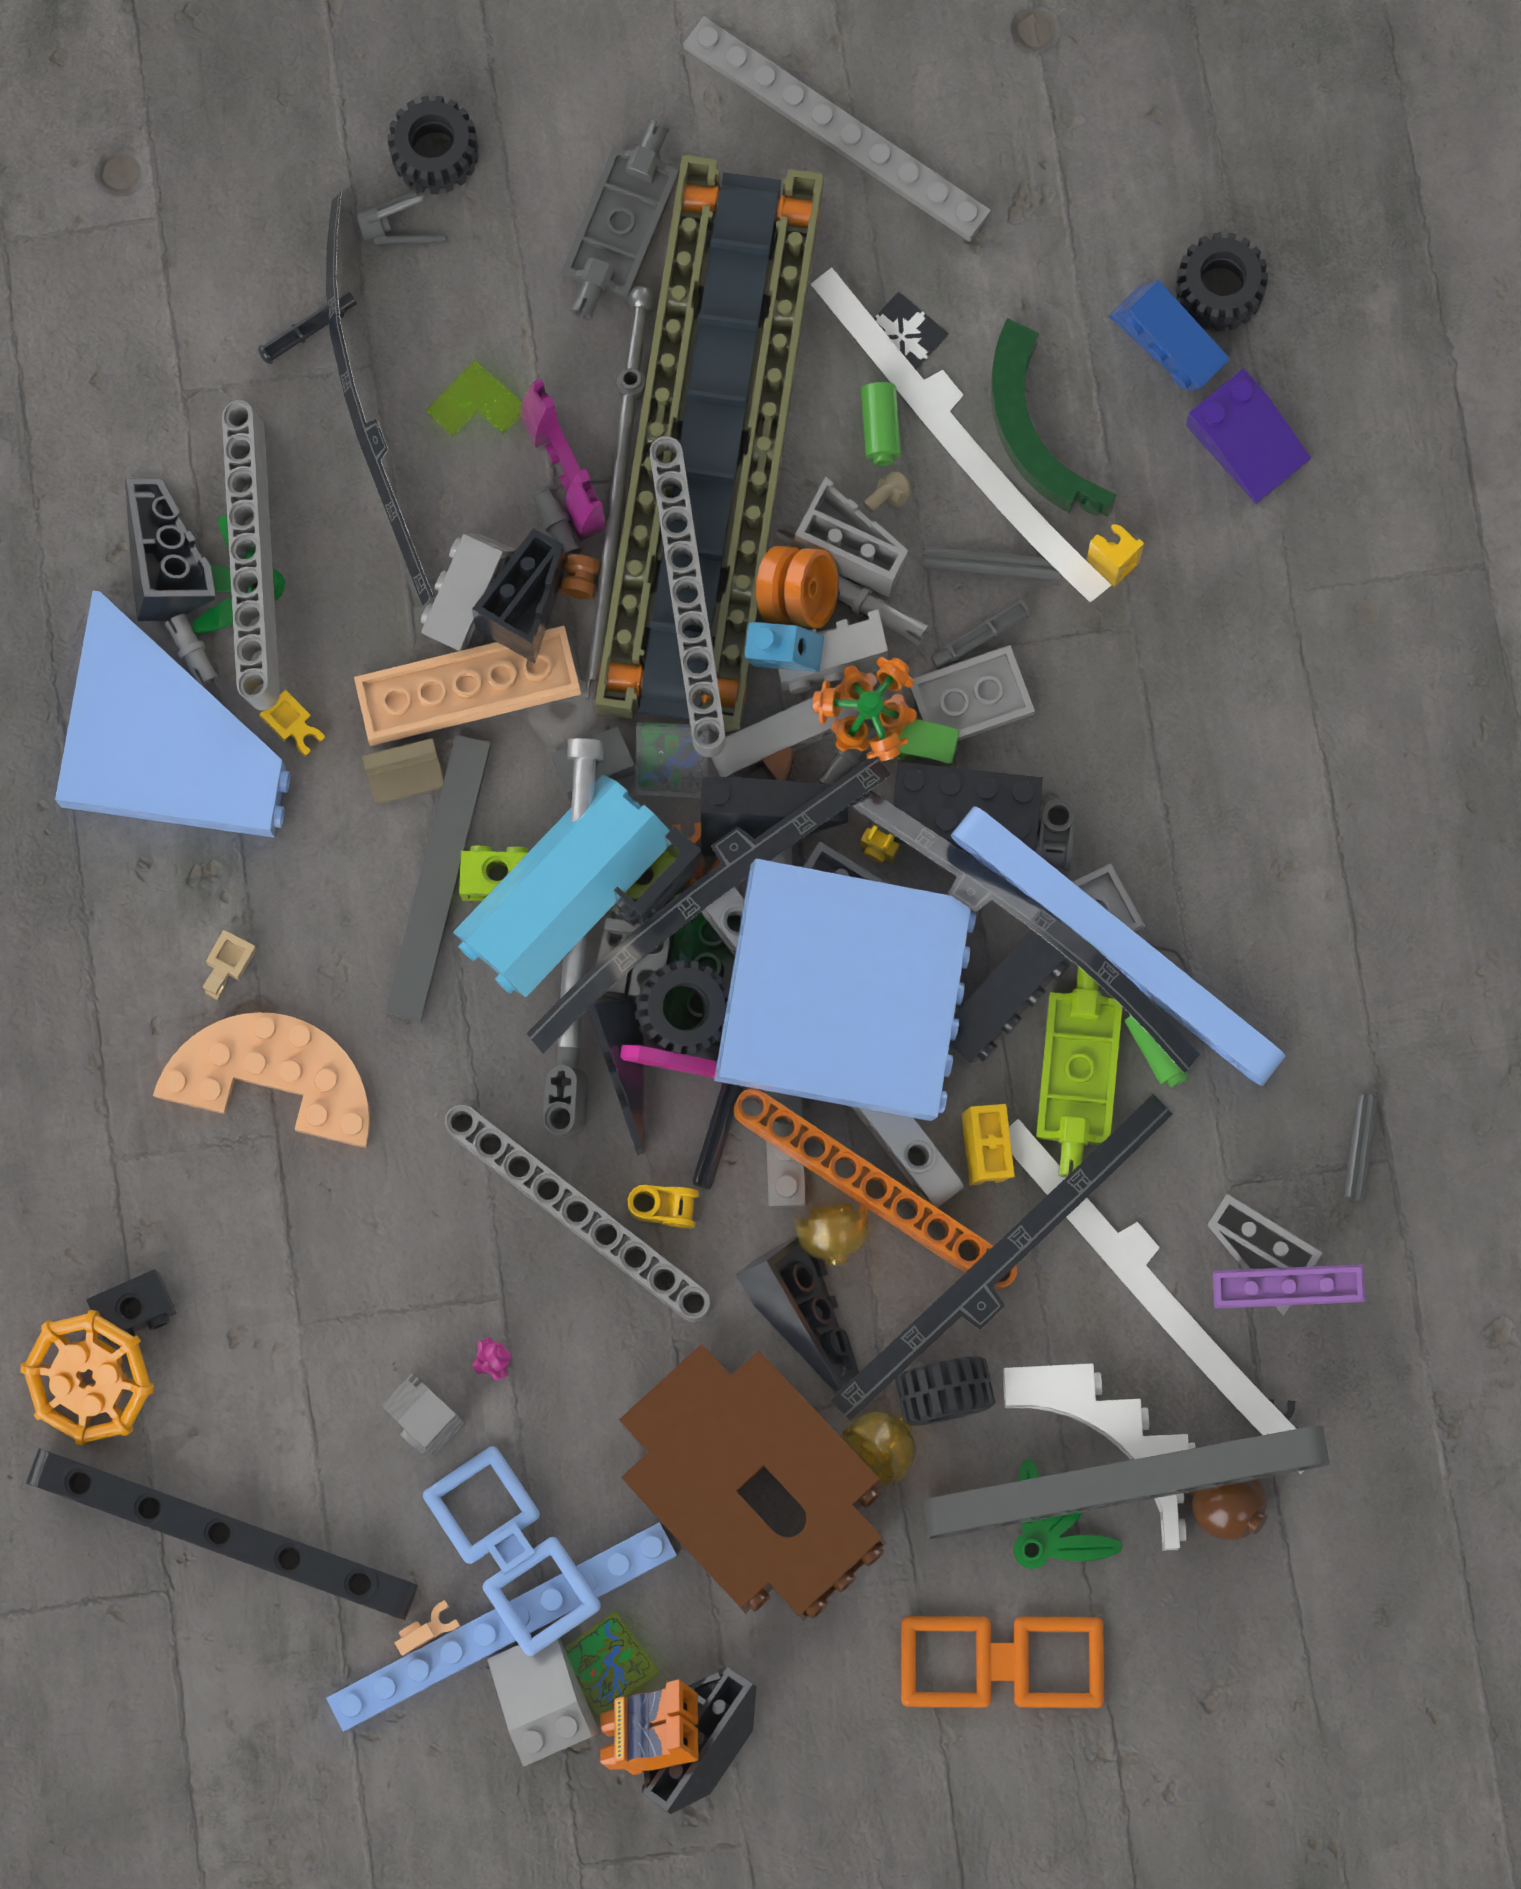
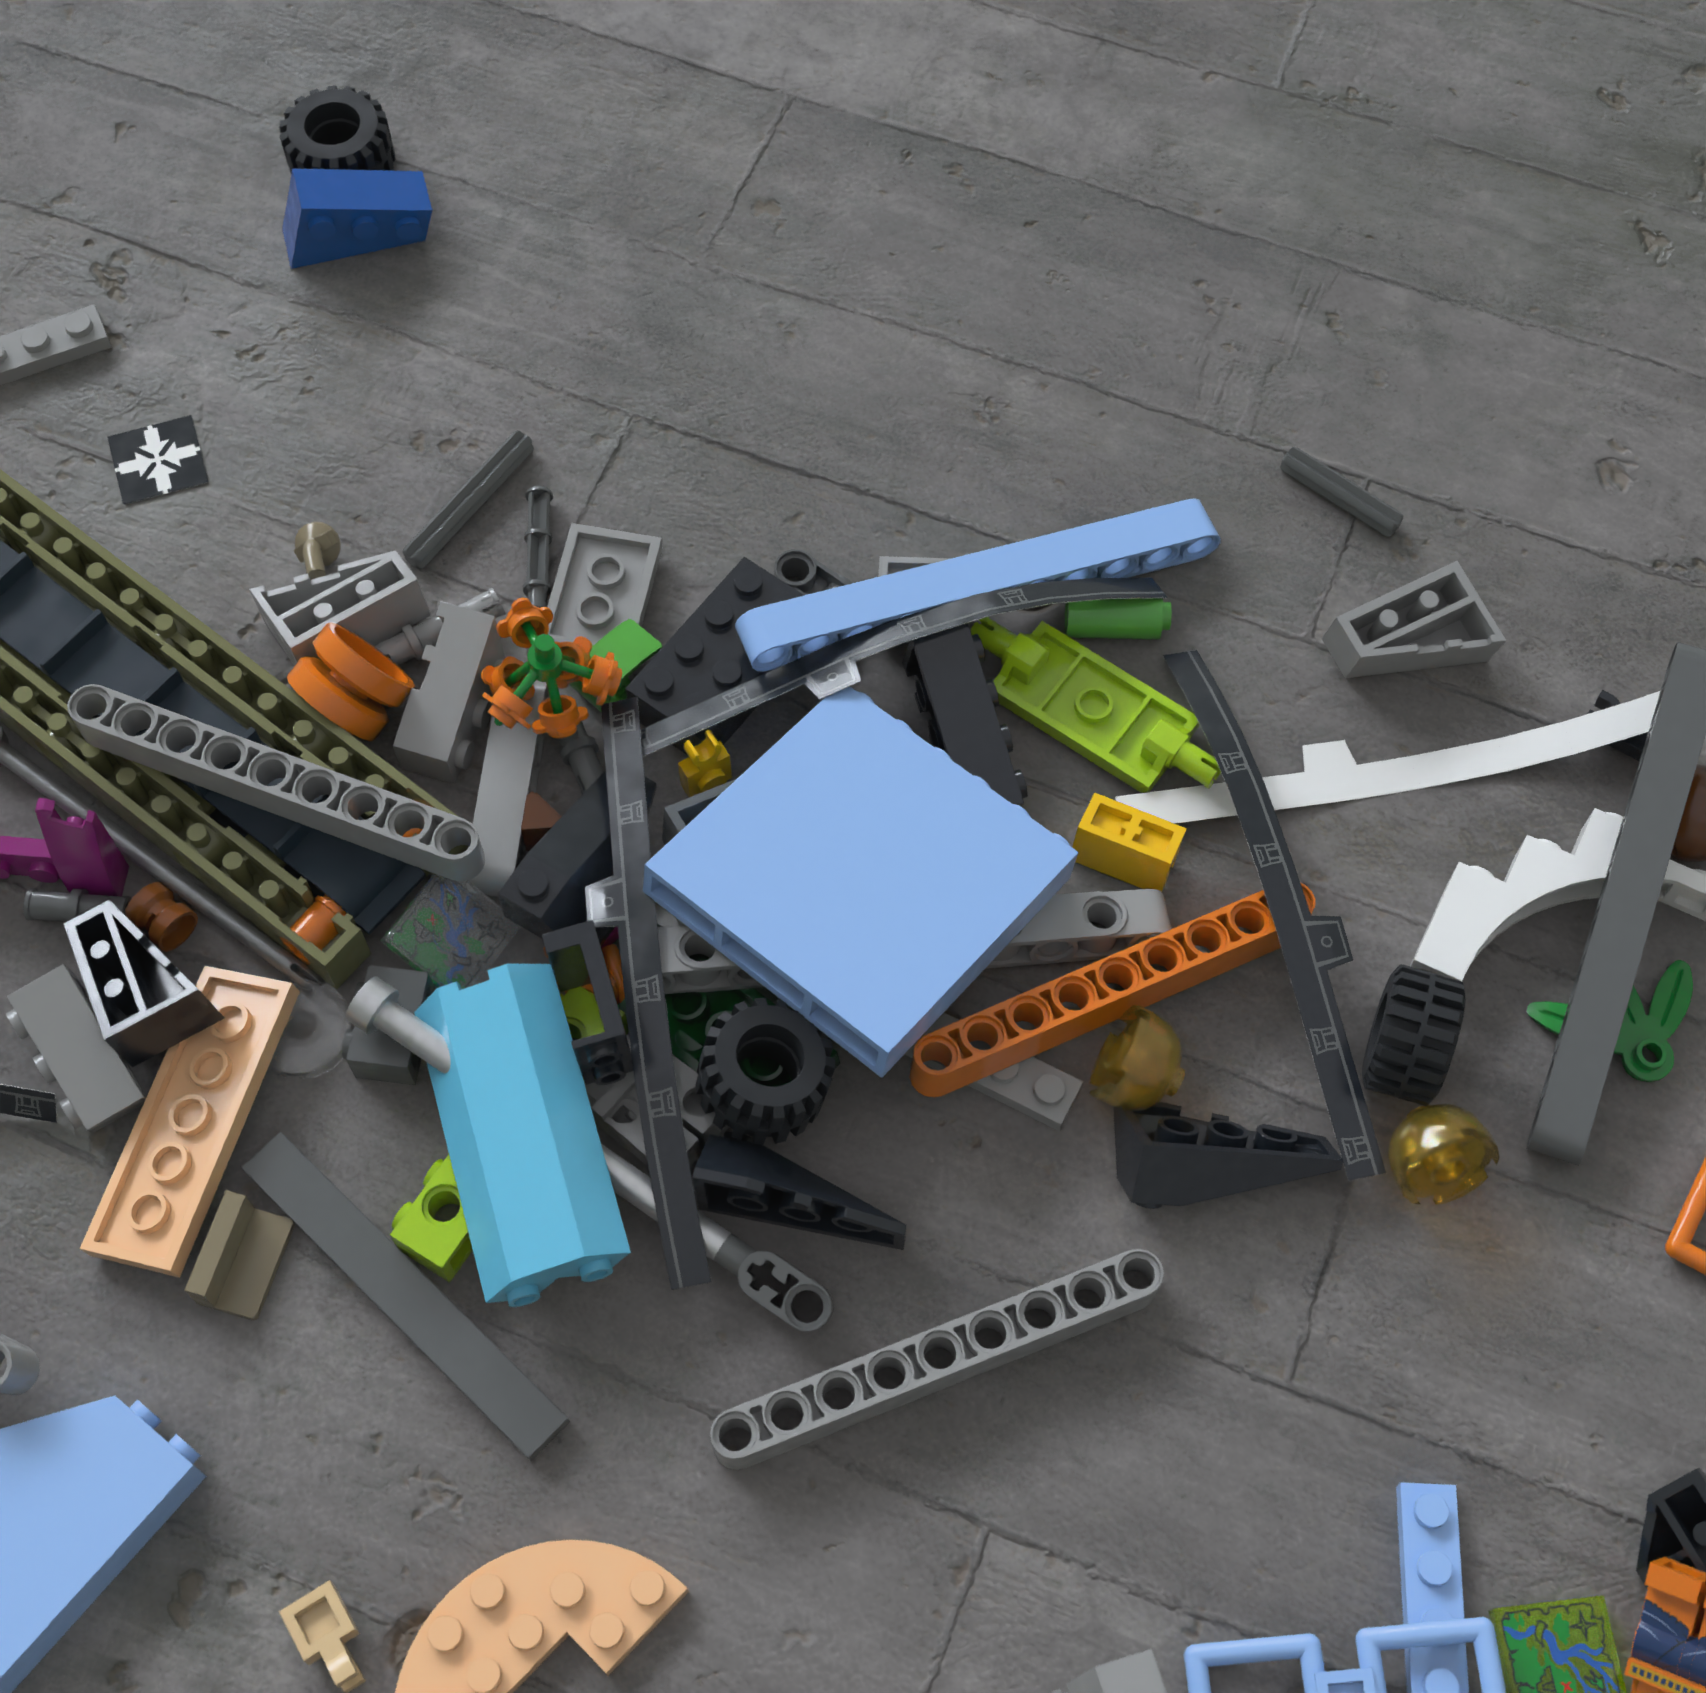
camera: 65 degrees left, 15 degrees down
(289, 719) = (72, 1362): yellow plate -> none
(492, 1359) = (1071, 1579): dark pink plant -> none
(666, 1205) = (995, 1242): yellow piece -> none
(669, 1060) = (822, 1122): dark pink tile -> none
(712, 1437) = (1332, 1354): reddish brown panel -> none
(716, 1136) = (922, 1126): black axle -> none
(778, 644) = (408, 723): dark azure torso -> none
(880, 423) = (233, 518): bright green brick -> none
(932, 402) = (251, 464): white sticker -> none
(1019, 437) = (354, 398): dark green arch -> none
(1113, 559) = (547, 370): yellow hinge -> none
(1247, 436) = (510, 207): dark purple slope -> none
(1289, 1286) = (1477, 612): medium lavender tile -> none

